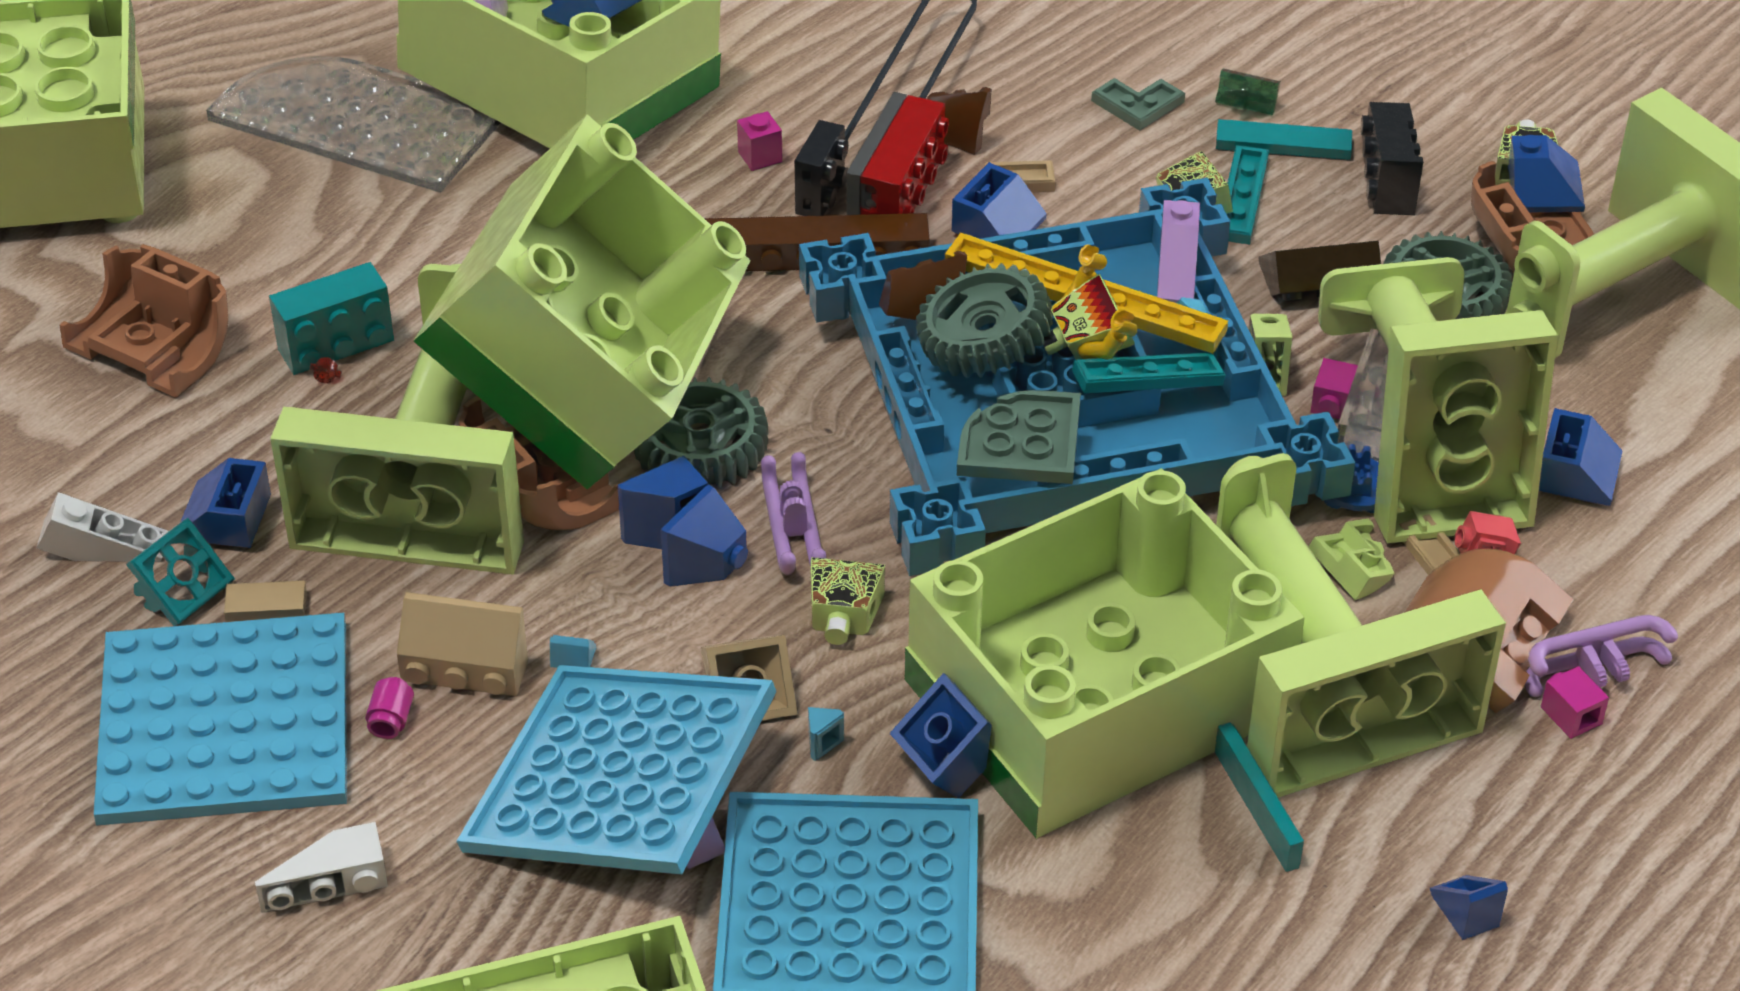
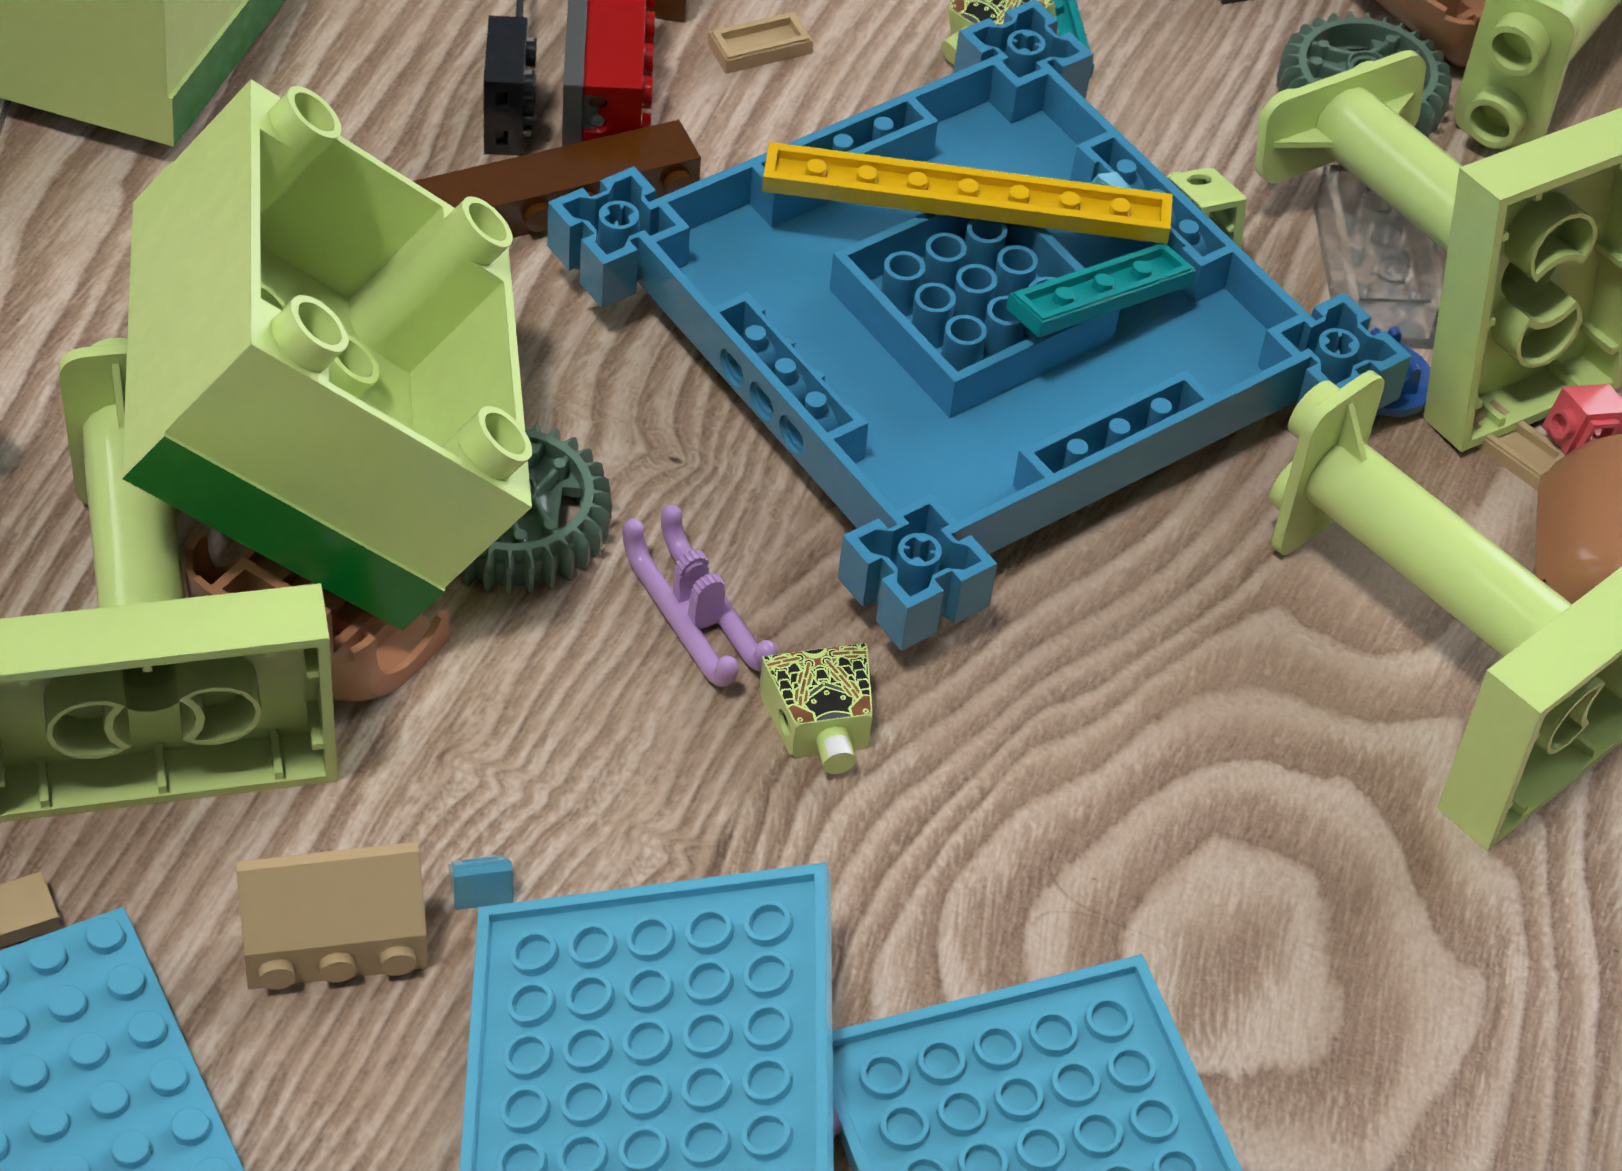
camera: 25 degrees left, 5 degrees up
(389, 707) = (259, 1039): dark pink brick -> none
(654, 499) = (527, 630): blue slope -> none
(702, 541) = (603, 670): blue slope -> none
(756, 659) = (746, 836): tan slope -> none
(759, 140) = (396, 59): dark pink brick -> none
(824, 730) = (886, 908): medium azure slope -> none
(908, 287) = (755, 235): reddish brown slope -> none
(946, 737) = (1071, 874): blue slope -> none
(955, 313) = (858, 230): sand green gear -> none
(995, 205) = (762, 94): blue slope -> none
(1022, 438) = (991, 420): sand green plate -> none
(1089, 316) = (1005, 228): torso -> none
(1100, 645) = (1221, 700): yellowish green piece -> none
(1178, 250) = (1060, 109): lavender slope -> none
(1259, 797) = (1488, 850): teal tile -> none
(1302, 269) = (1206, 94): dark brown slope -> none
(1332, 387) = (1302, 254): dark pink brick -> none
(1354, 558) = (1443, 475): yellowish green slope -> none

